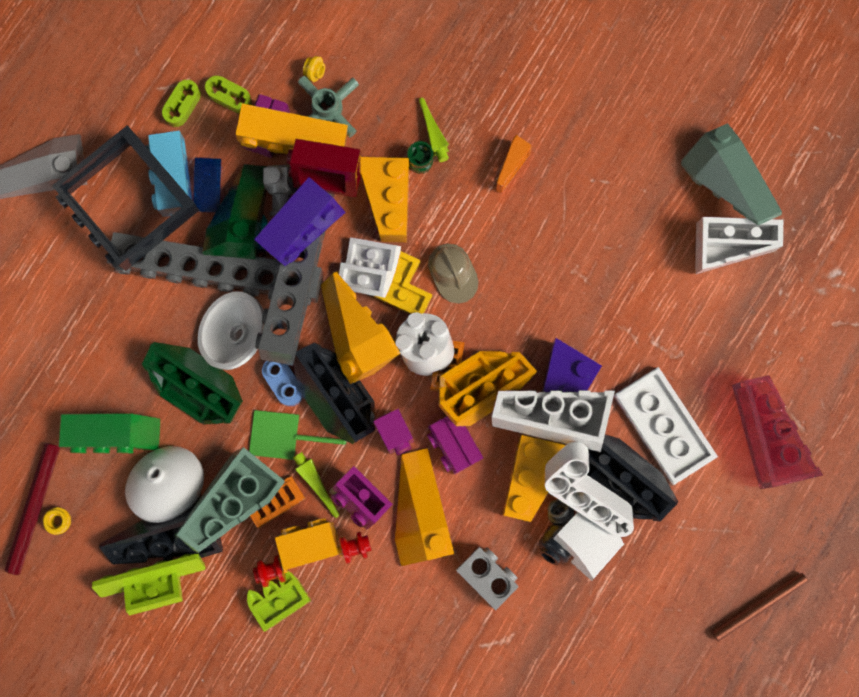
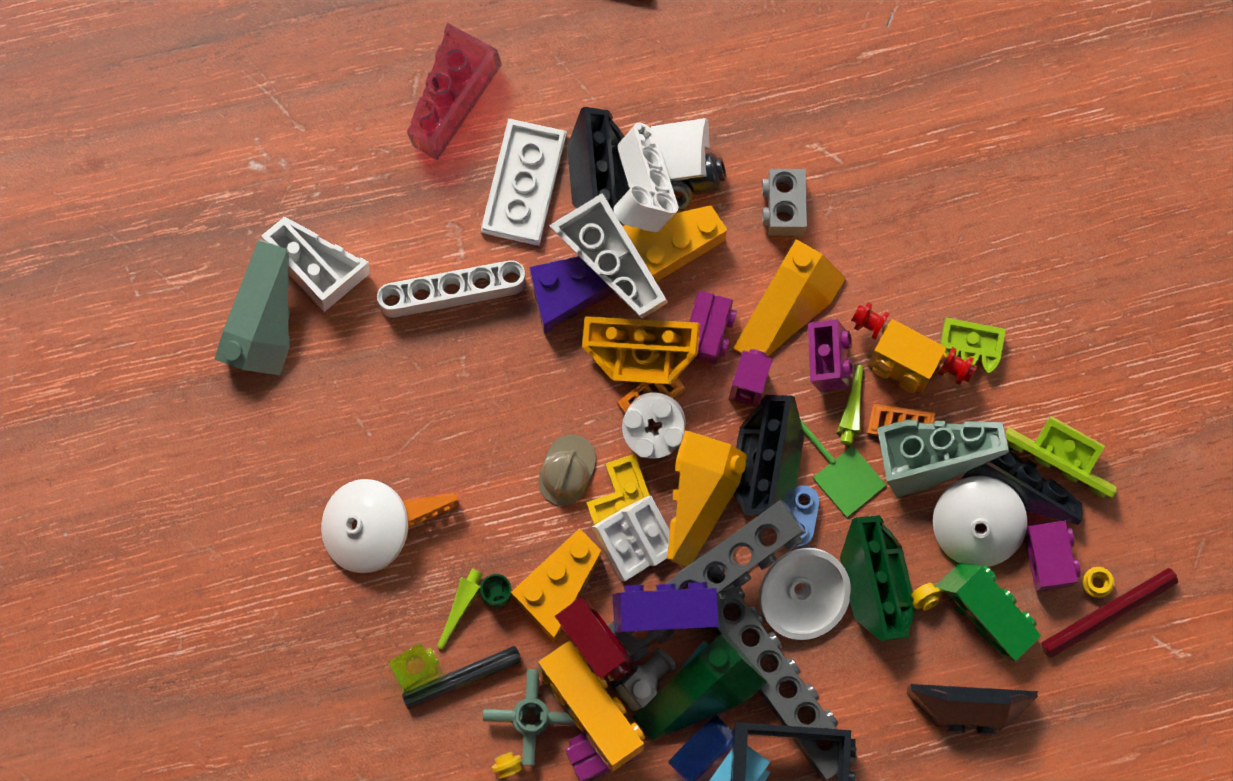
camera: 140 degrees left, 5 degrees down
(65, 364) = (970, 706): none -> black wedge
(98, 506) = (1052, 556): none -> magenta brick
(156, 404) = (926, 596): none -> yellow plate
(390, 93) = (461, 677): none -> black axle
(423, 59) = (407, 679): none -> clear neon green brick
(535, 119) = (379, 529): none -> white dish
(644, 301) = (439, 299): none -> white beam

